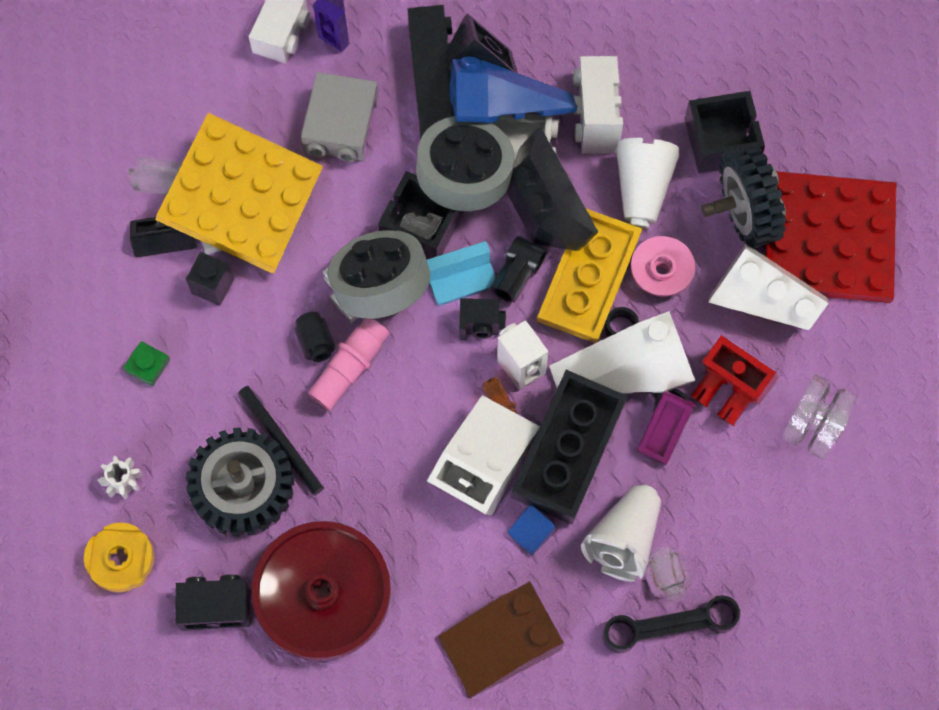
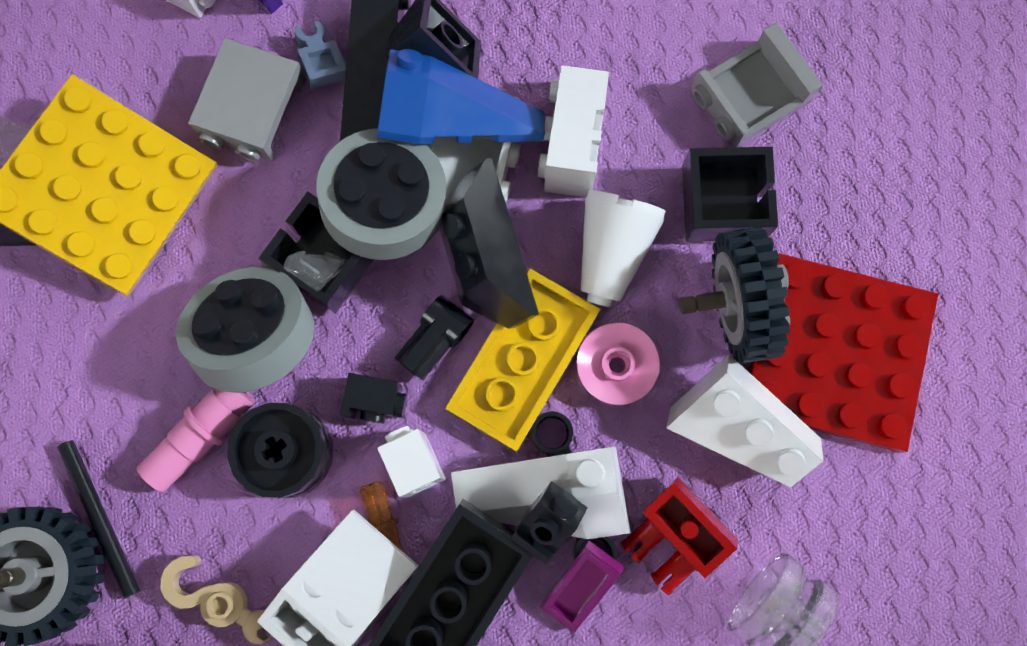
camera: 10 degrees right, 10 degrees up
(210, 278) = (44, 293): black brick -> none
(314, 337) = (162, 390): black brick -> none
(390, 482) = (219, 603): none -> tan piece
(391, 80) = (319, 59): none -> sand blue plate
(401, 359) = (256, 446): none -> black wheel
(461, 273) = (361, 333): medium azure panel -> none
(630, 382) = (549, 522): none -> black brick
(730, 53) = (756, 87): none -> light grey panel

